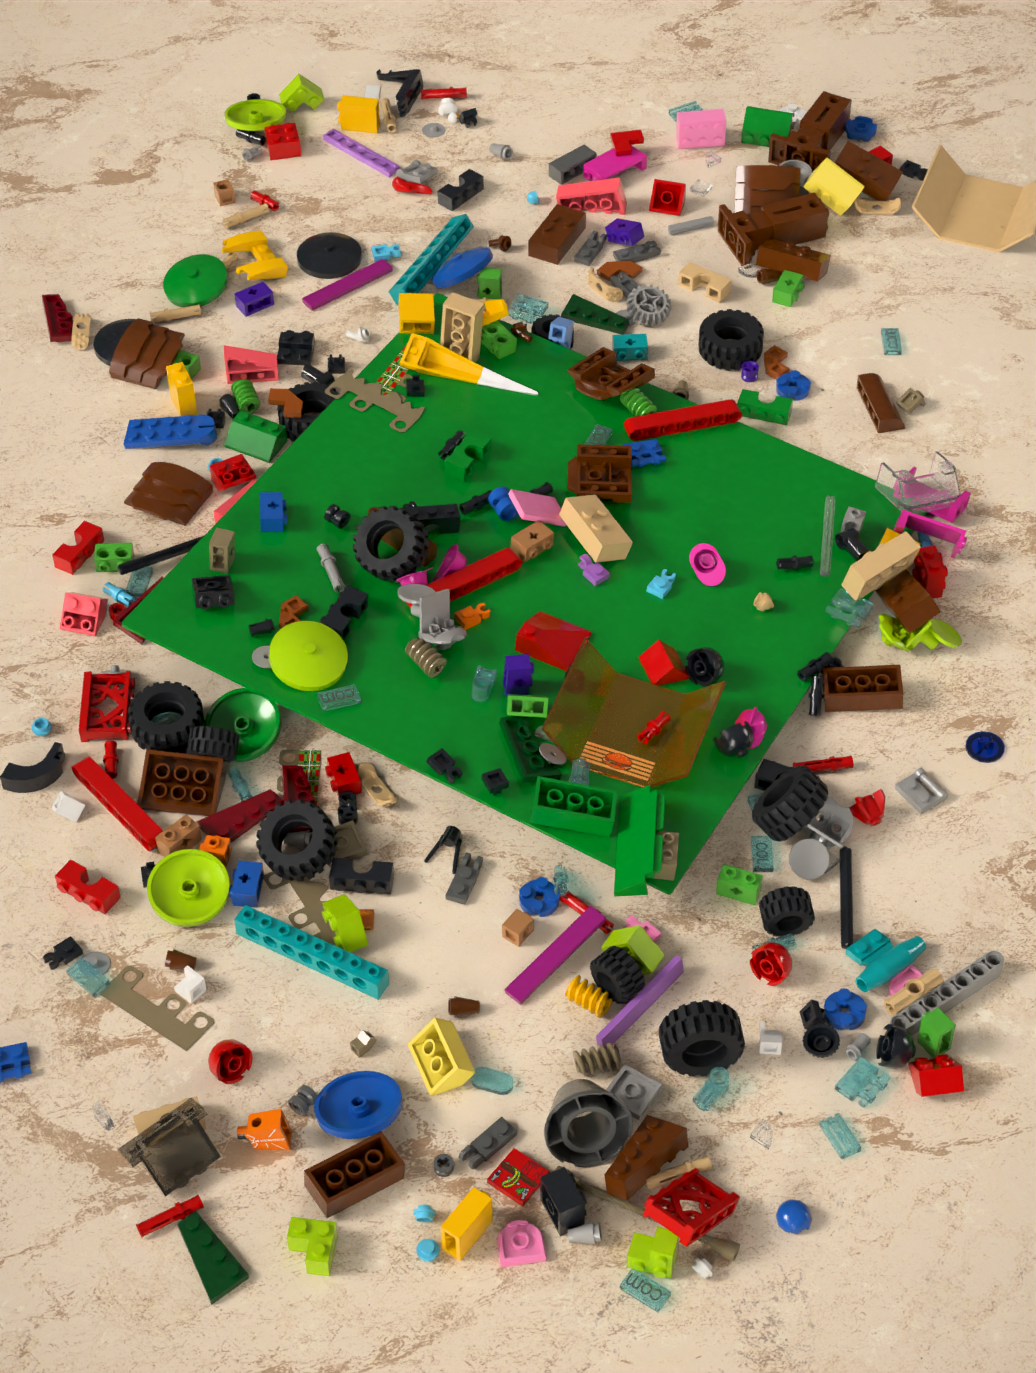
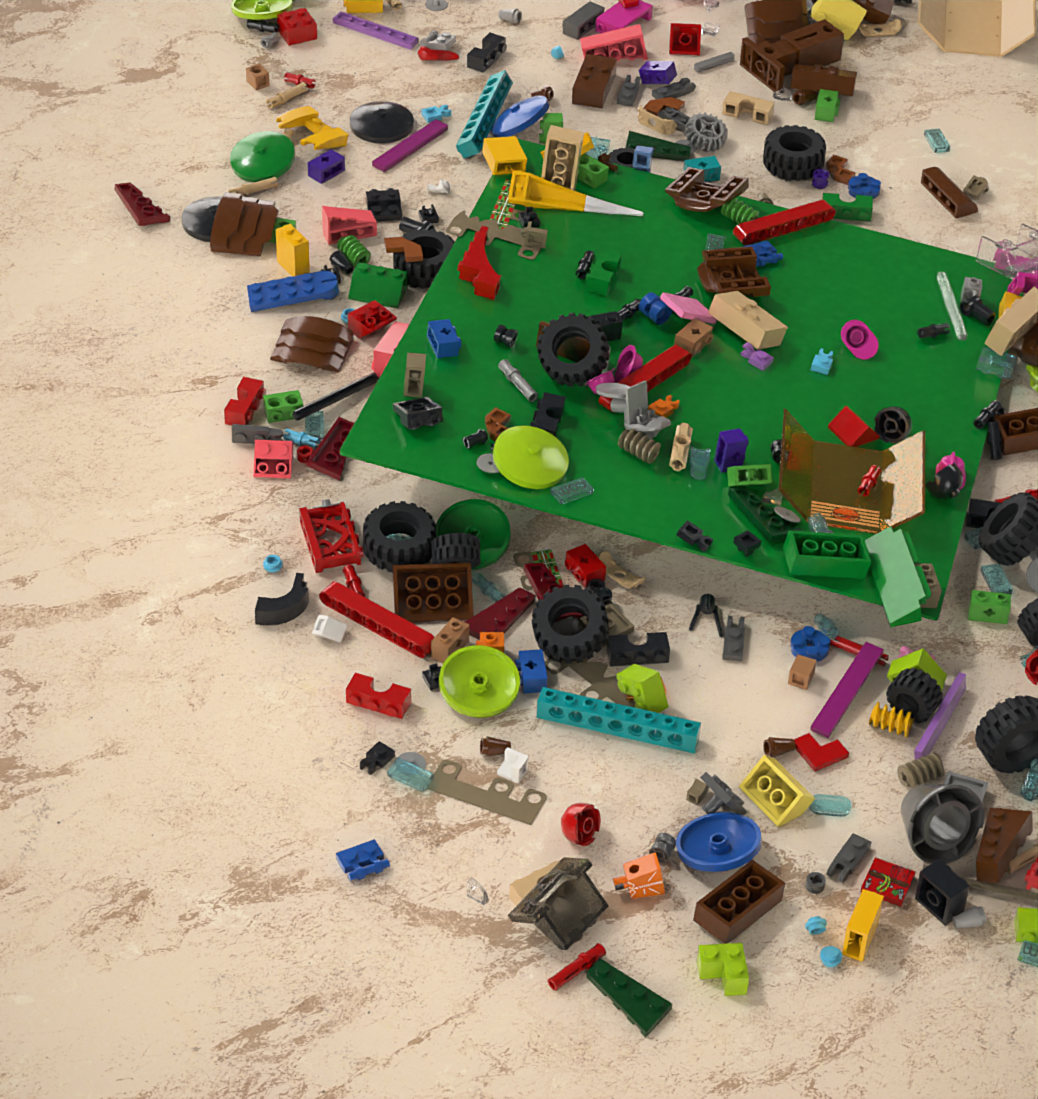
camera: 15 degrees left, 5 degrees down
(76, 584) = (250, 433): none -> dark grey hinge
(80, 337) = (167, 217): tan piece -> none
(335, 434) = (477, 268): none -> red arch
(381, 1054) = (721, 796): none -> dark grey plate
(410, 408) = (534, 236): none -> dark tan bracket
(469, 663) = (681, 447): none -> tan piece
(503, 1024) = (820, 756): none -> red tile
(520, 1244) = (913, 938): bright pink tile -> none
(550, 640) = (753, 419): red slope -> none
(763, 602) = (919, 366): tan plate -> none

